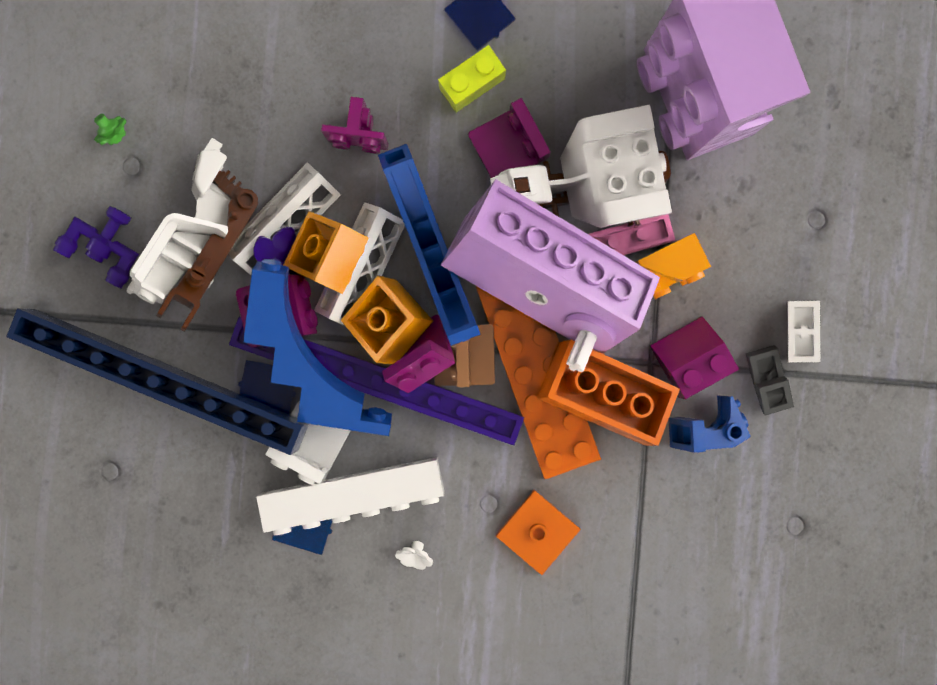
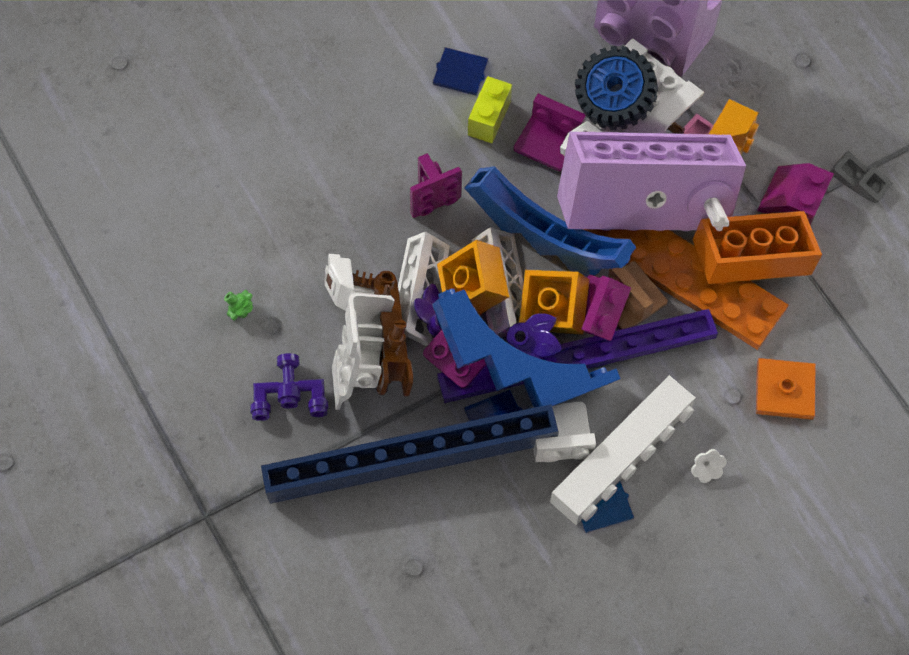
camera: 35 degrees left, 25 degrees down
(340, 351) = (538, 339): none -> dark purple plate
(568, 137) = (610, 69): none -> wheel
(692, 435) = (851, 225): blue tile -> none
(803, 331) = (857, 127): white hinge -> none

